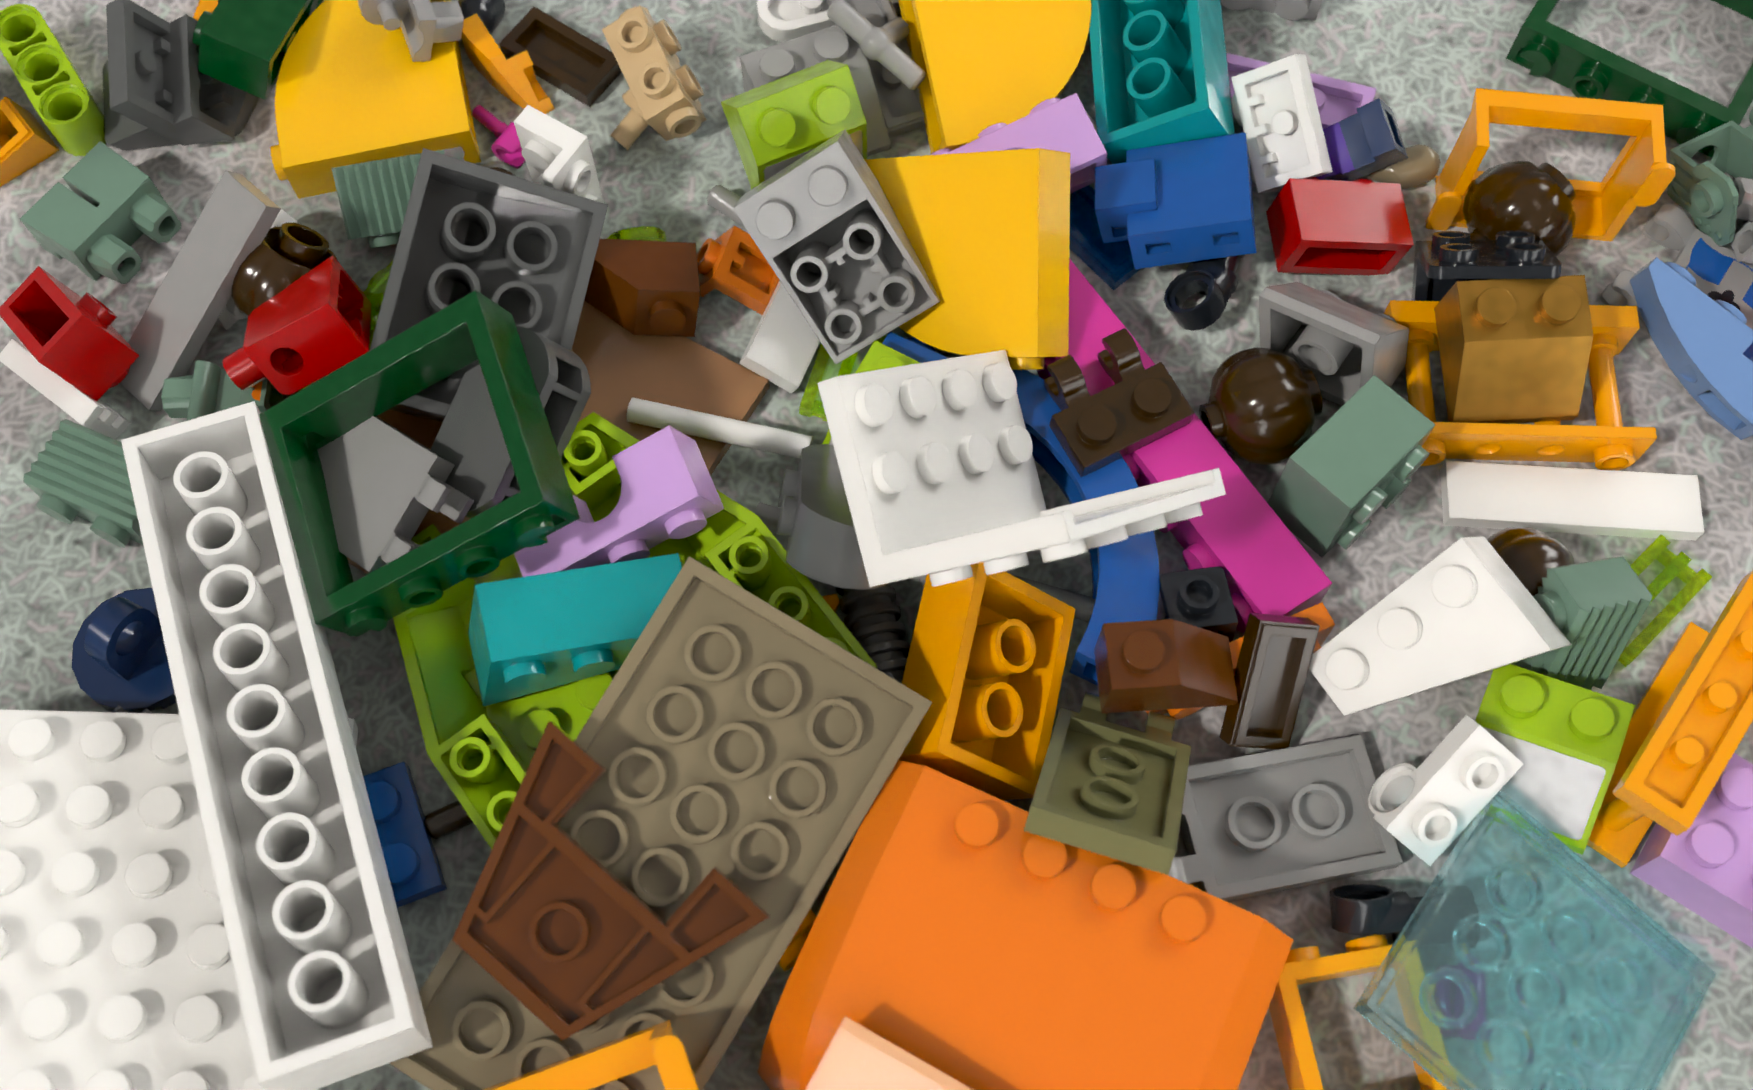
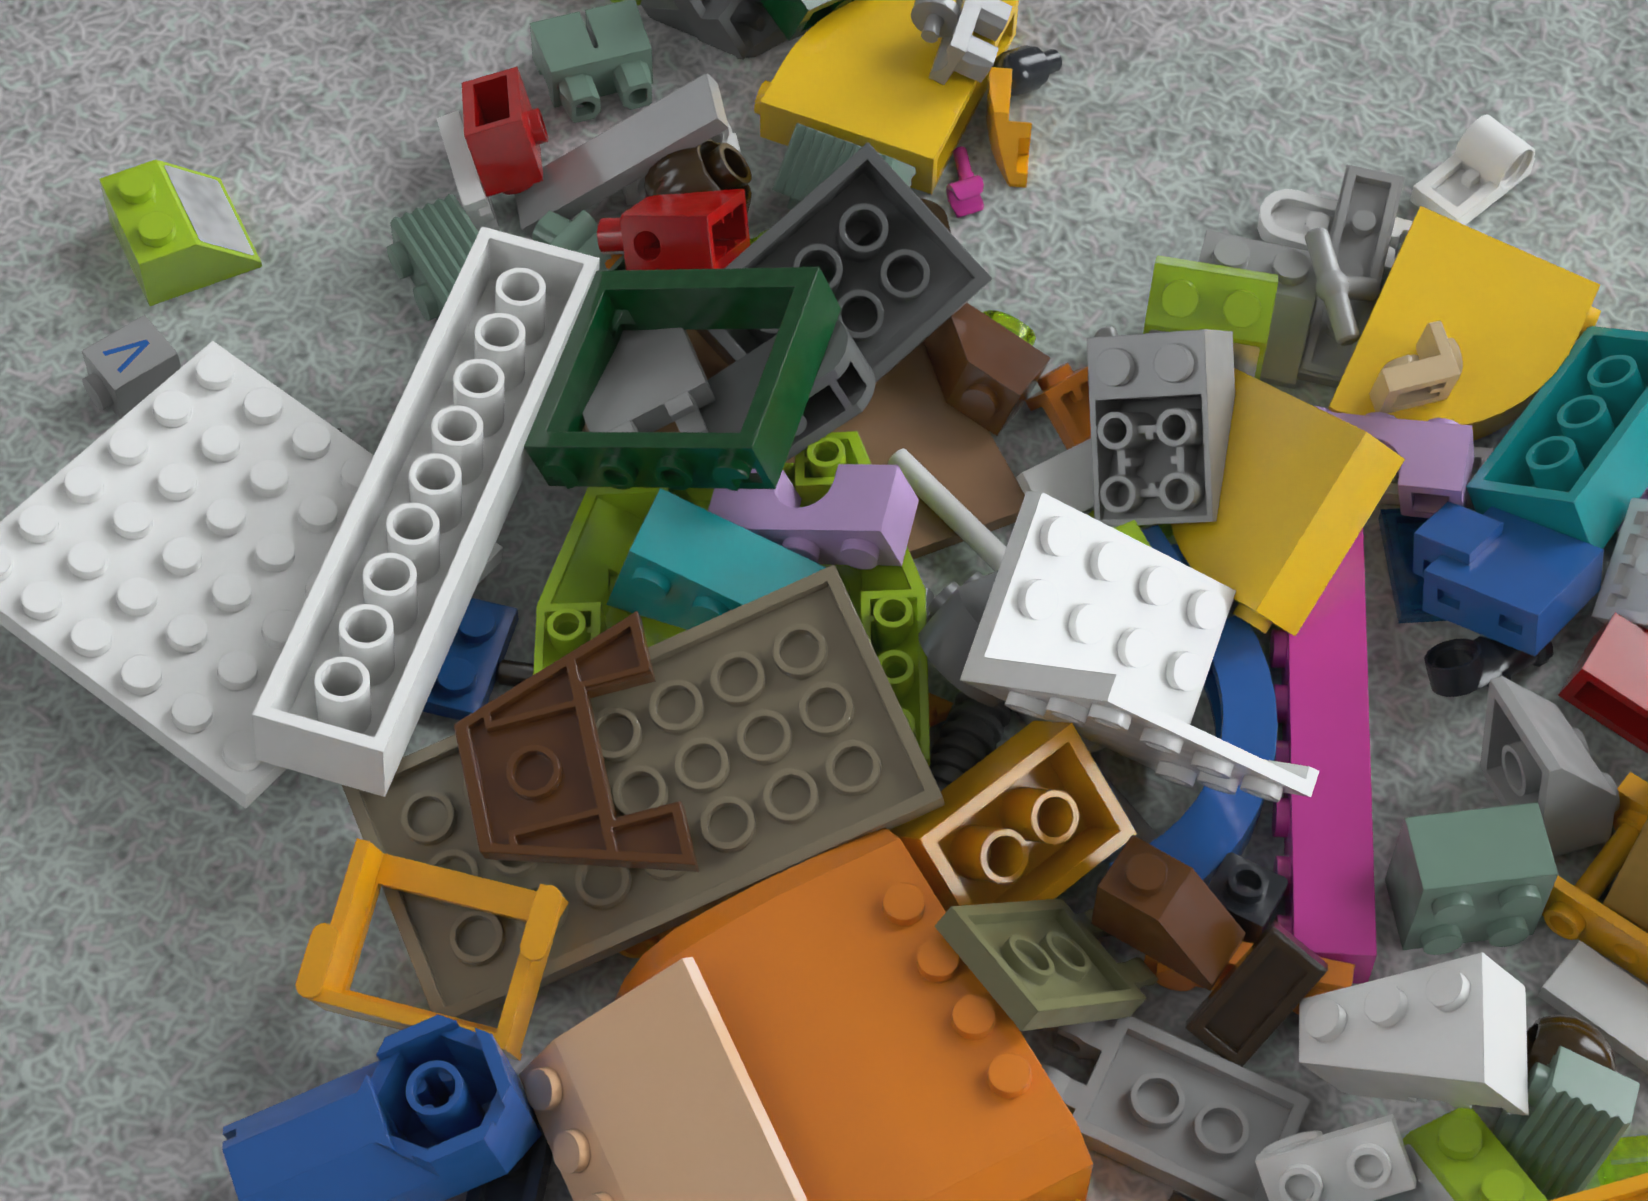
camera: 35 degrees right, 10 degrees down
(123, 654) = (366, 393): dark blue tile -> none
(557, 154) = (986, 227): white bracket -> none
(562, 56) = (1066, 148): dark brown tile -> none
(660, 89) = (1126, 208): tan brick -> none
(1009, 70) = (1417, 381): none -> tan bracket
(1120, 418) = (1298, 709): dark brown plate -> none
(1262, 405) = (1435, 773): dark brown plant -> none

